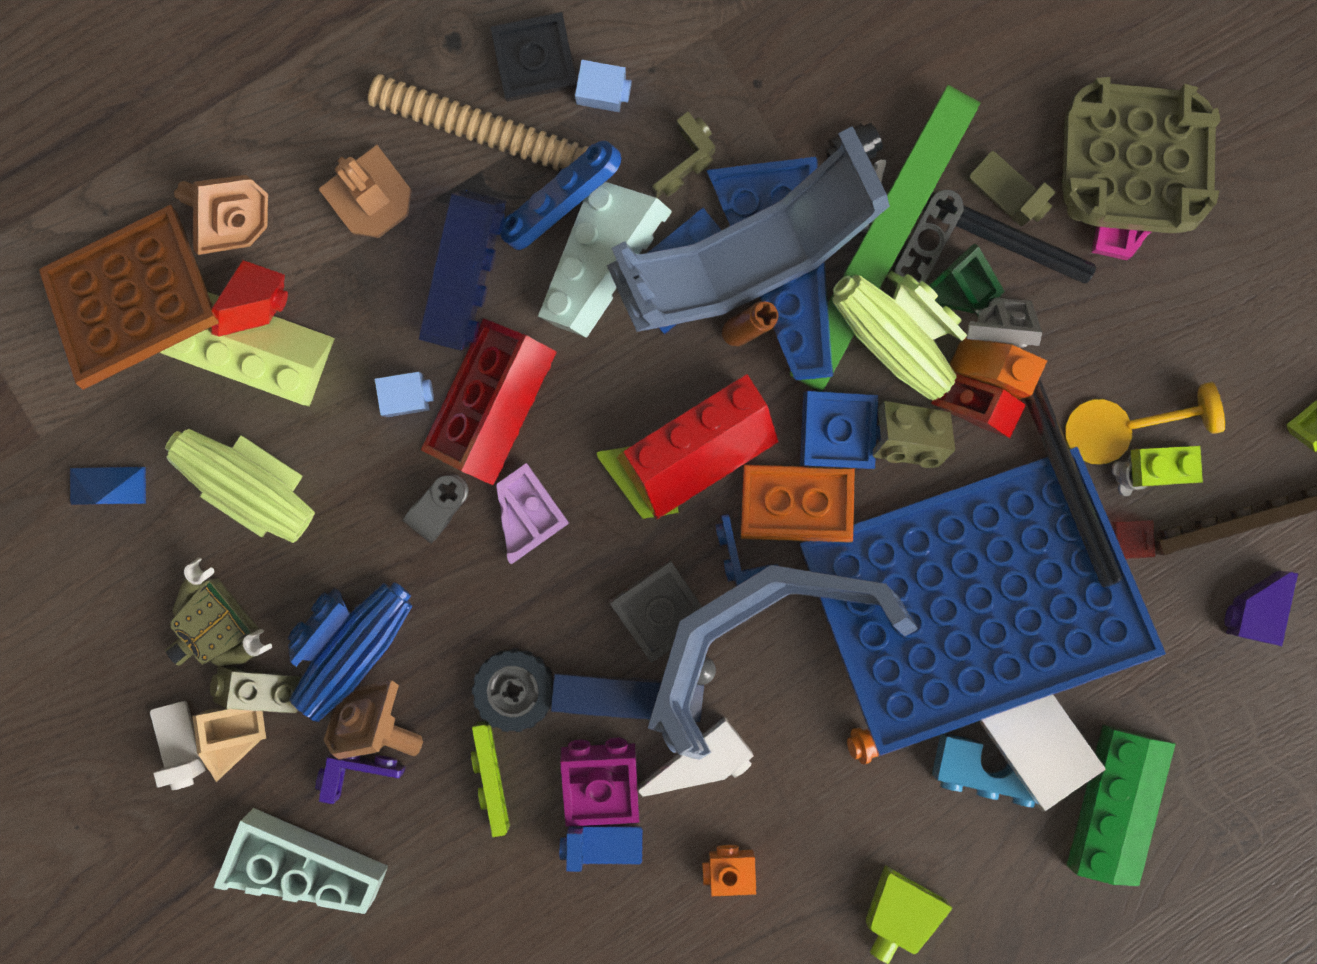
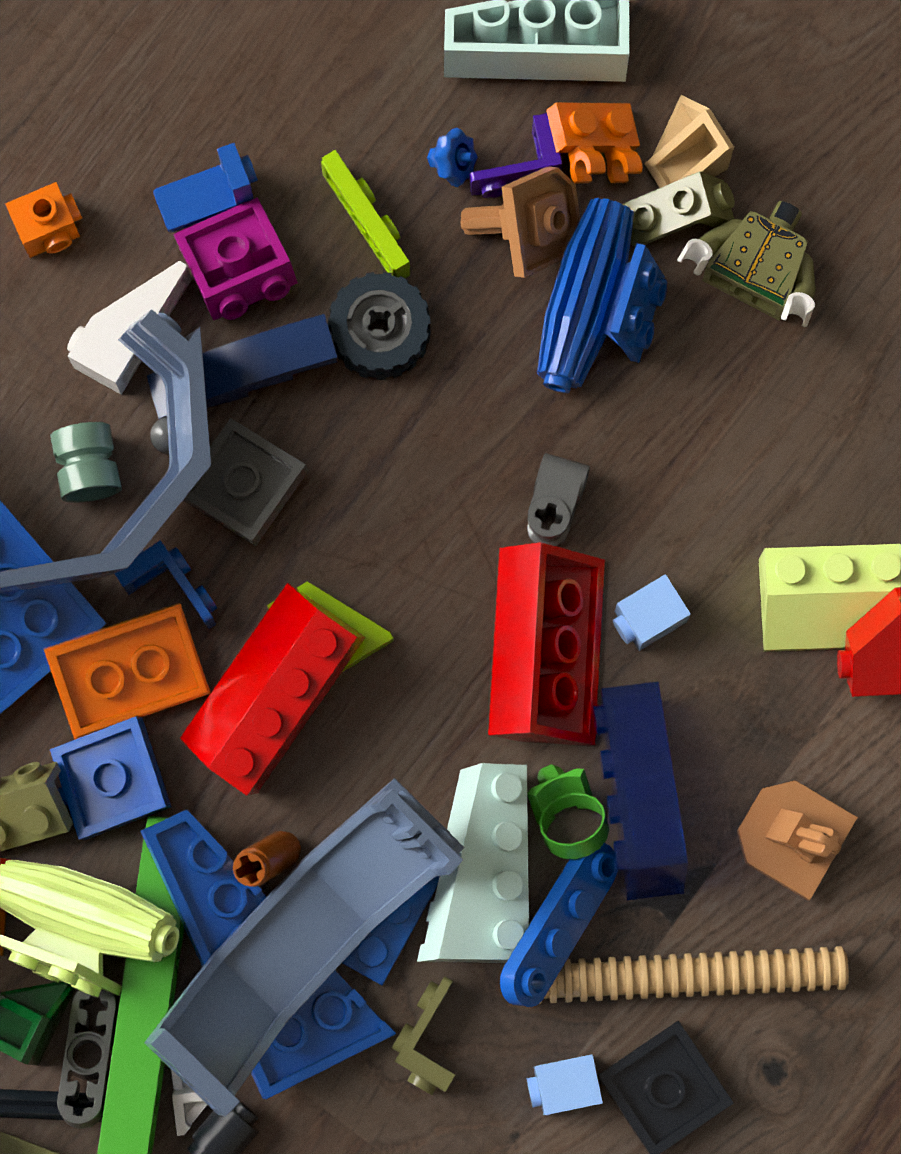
camera: 160 degrees right, 10 degrees down
(177, 746) = (740, 113): white bracket -> none
(242, 483) = (791, 434): yellowish green plate -> none
(291, 777) = (594, 129): none -> orange plate
(406, 798) = (453, 157): none -> blue piece
(522, 292) = (561, 791): none -> bright green piece
(527, 512) = (446, 534): lavender wing -> none
(769, 672) = (85, 455): none -> sand green wheel

